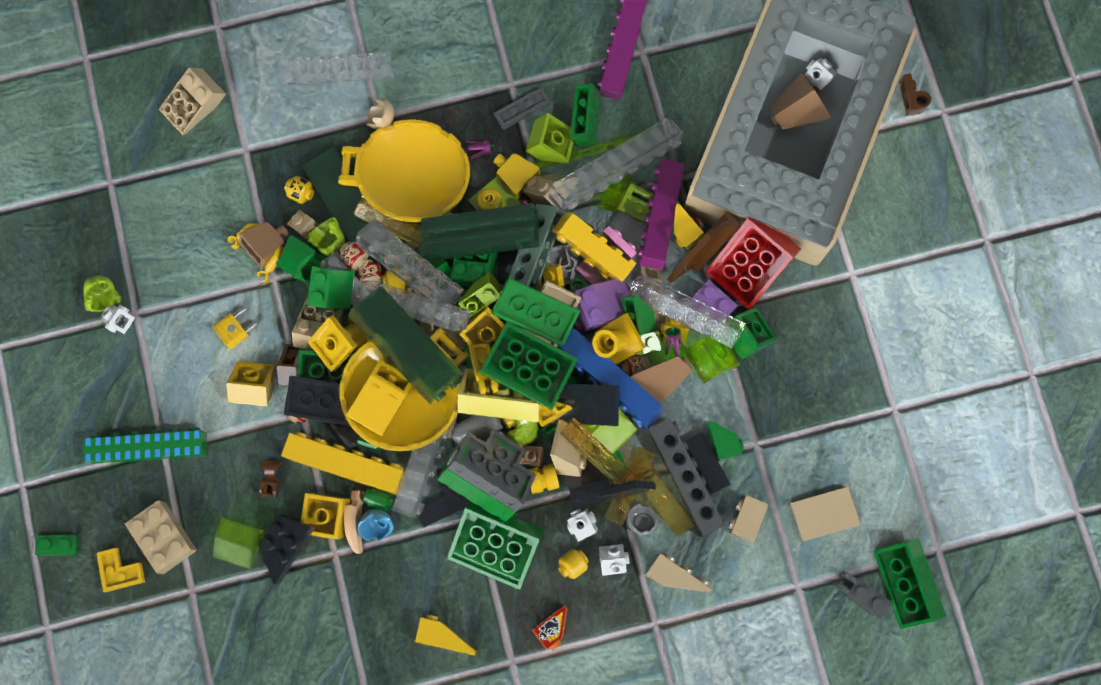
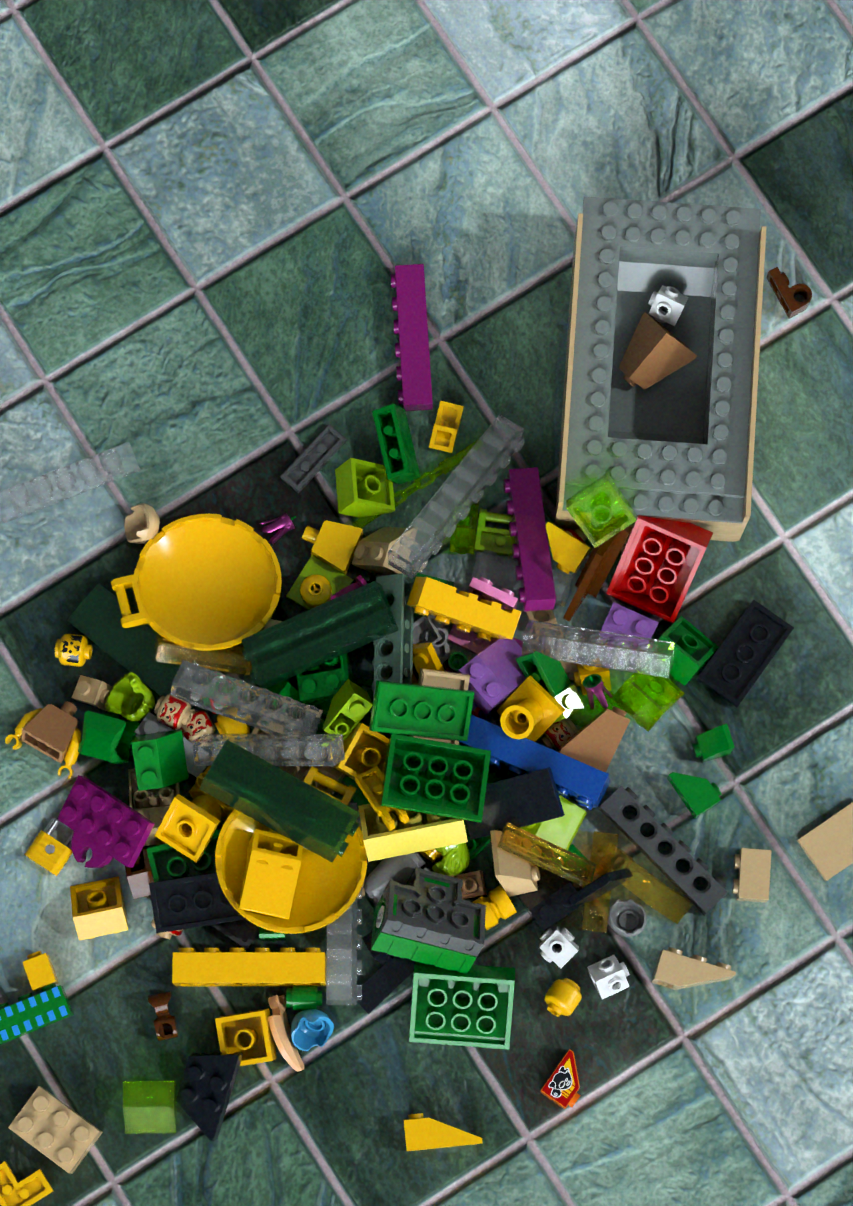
camera: 20 degrees left, 0 degrees up
(192, 415) = (39, 970): none -> yellow brick
(274, 323) = (103, 825): none -> magenta plate
(547, 416) = (476, 830): yellow slope -> none
(626, 115) = (446, 426): none -> yellow slope
(707, 463) = (683, 824): black tile -> none
(721, 202) = (601, 510): none -> clear neon green brick
(750, 409) = (713, 744): none -> green slope
(795, 350) = (745, 653): none -> black plate

